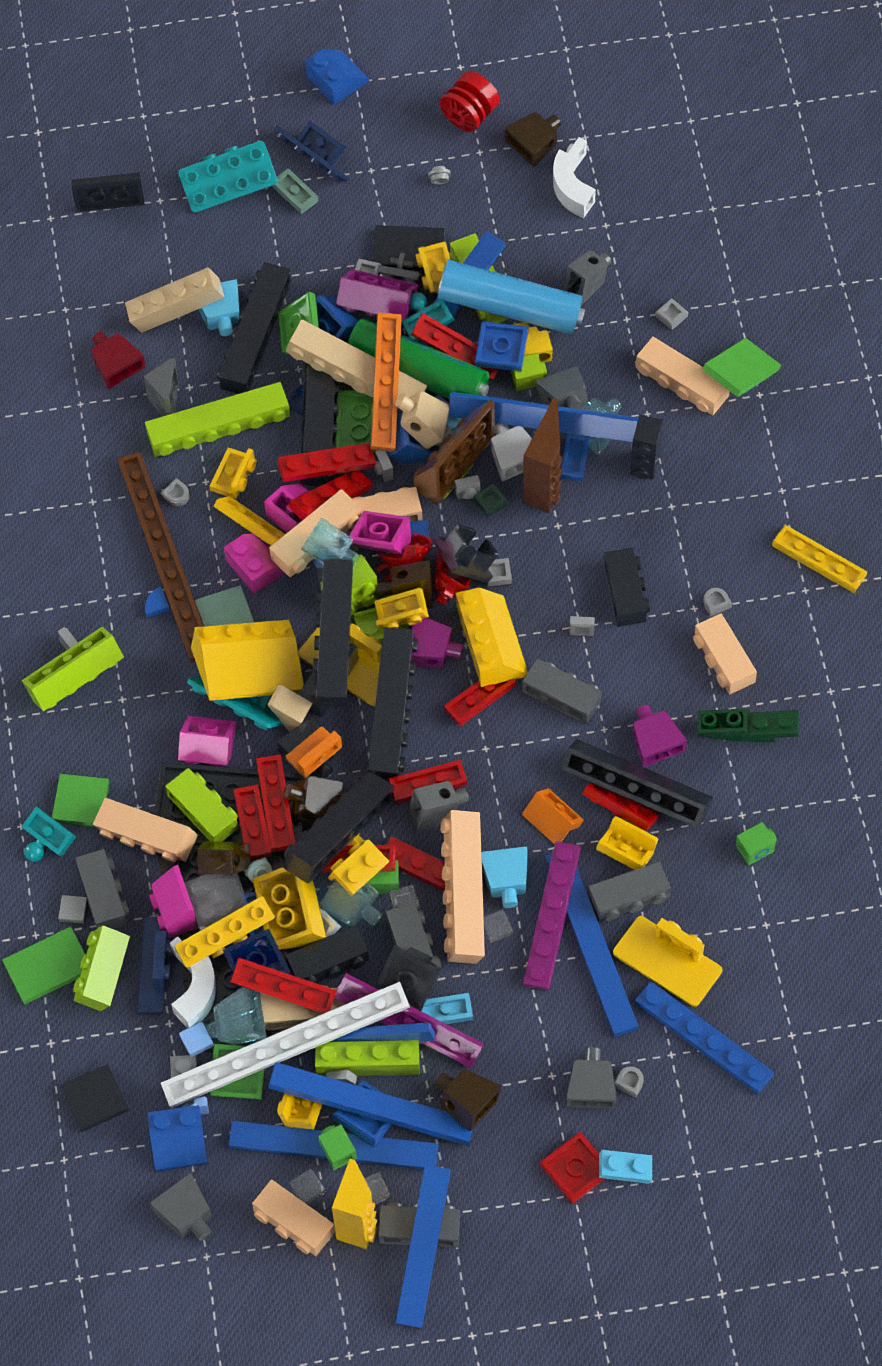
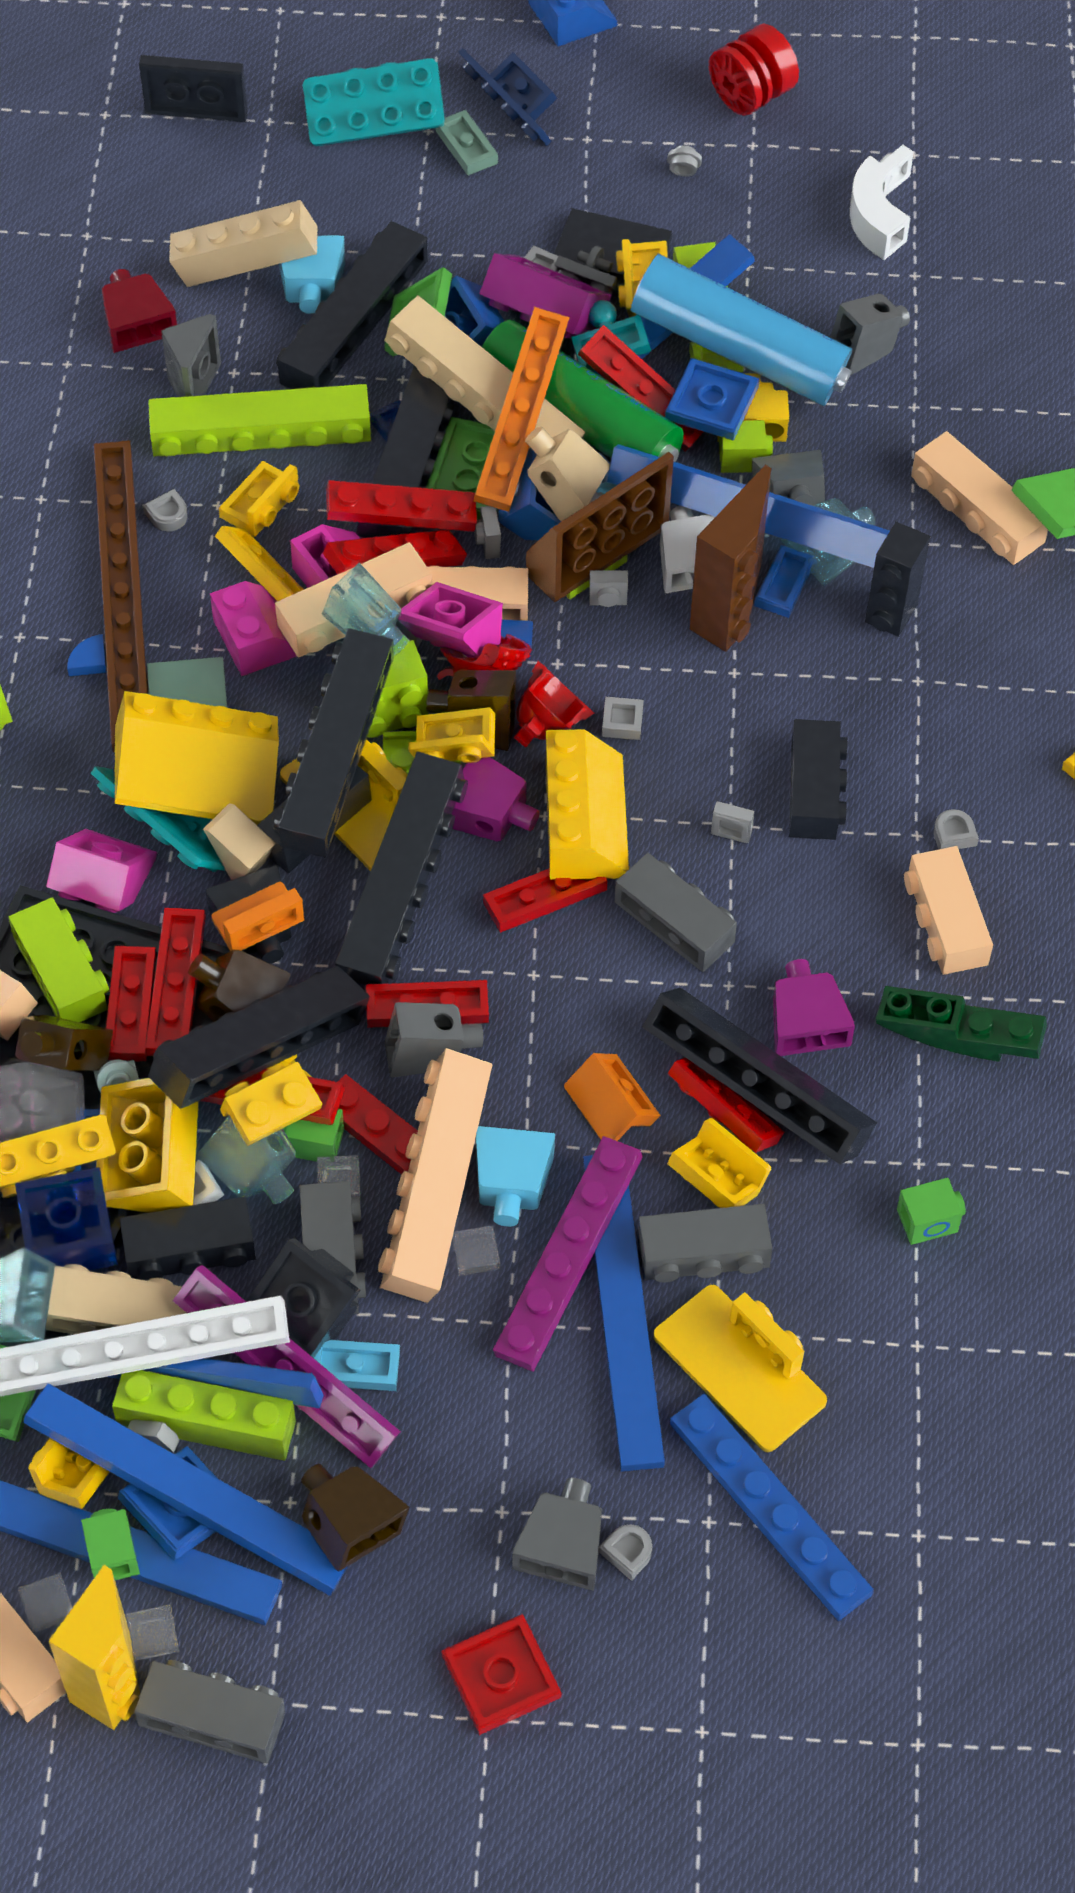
camera: 10 degrees right, 5 degrees down
(283, 986) = (92, 1261): red plate -> none
(423, 1246) = (202, 1748): blue tile -> none
(464, 558) = (572, 685): black panel -> none
(490, 500) = (639, 613): clear green plate -> none
(533, 136) = (836, 136): dark brown torso -> none
(625, 1166) = (583, 1691): medium azure plate -> none
(671, 314) = (984, 412): light grey tile -> none

